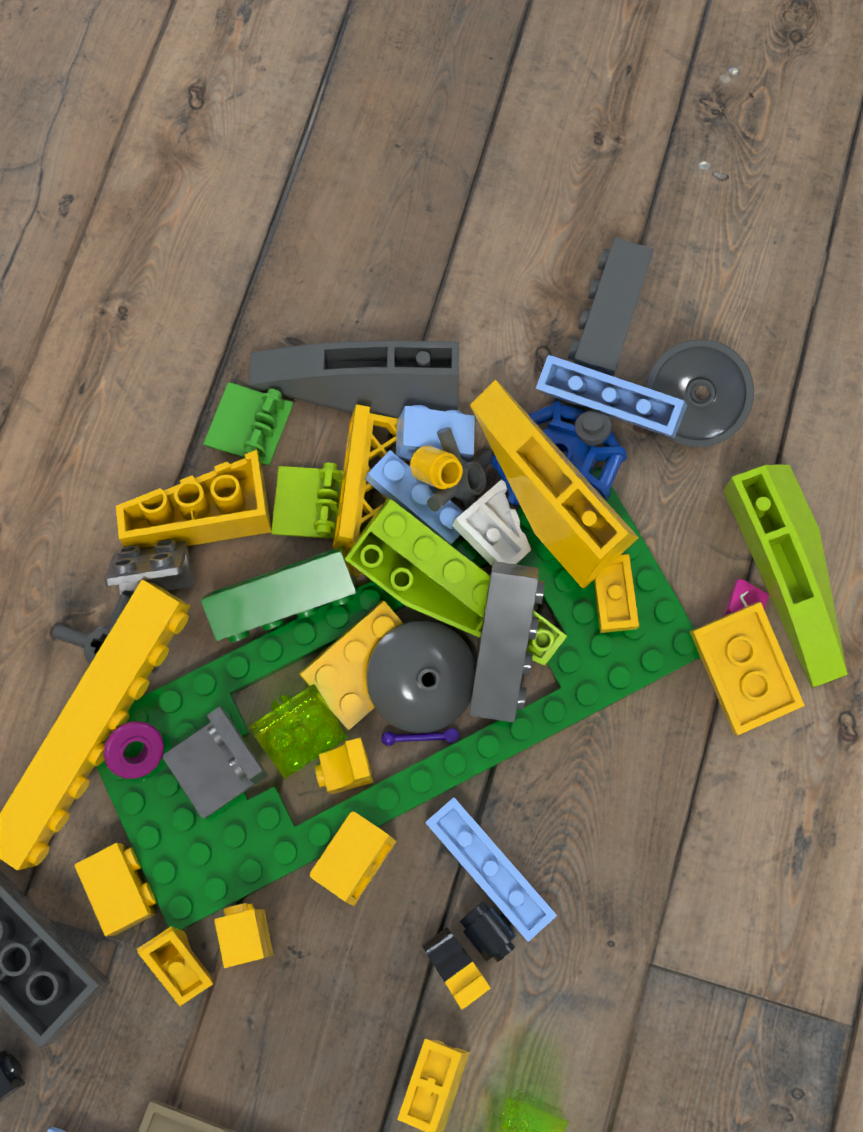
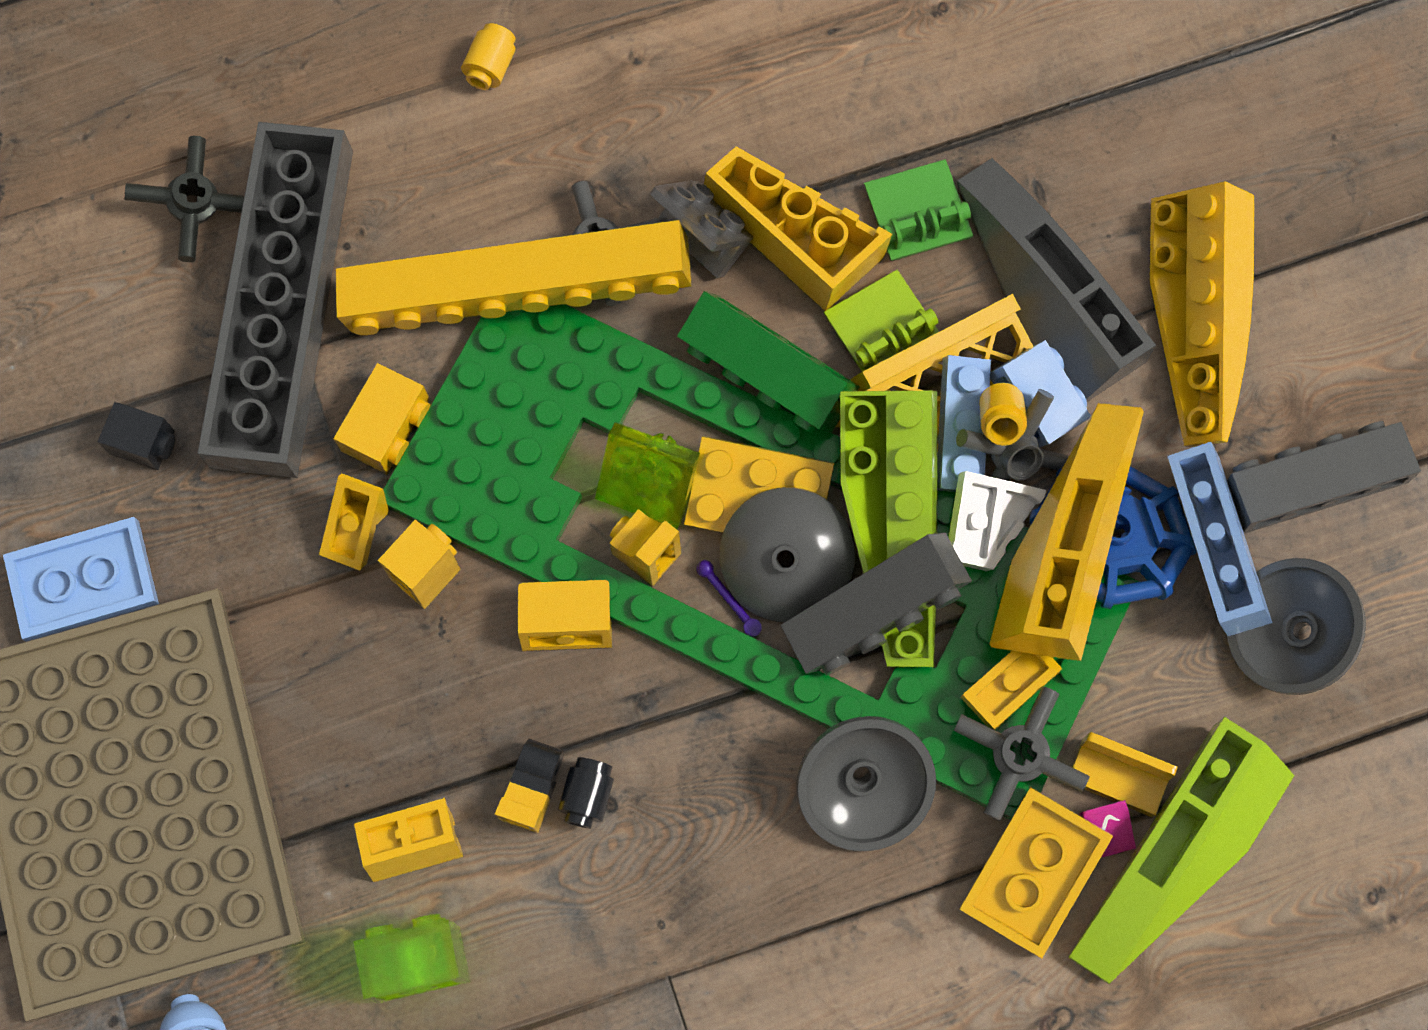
camera: 55 degrees right, 0 degrees up
(138, 765) = (510, 354): magenta piece -> none
(214, 764) = (559, 420): flat silver bracket -> none
(448, 296) = (1204, 301): none -> yellow wedge
(491, 869) = (648, 754): light blue plate -> none
(593, 427) = (1169, 541): dark grey plate -> none
(630, 739) = (870, 809): none -> dark grey dish
(668, 633) = (1038, 748): none -> dark grey bar
(716, 569) = (1123, 773): none -> yellow panel

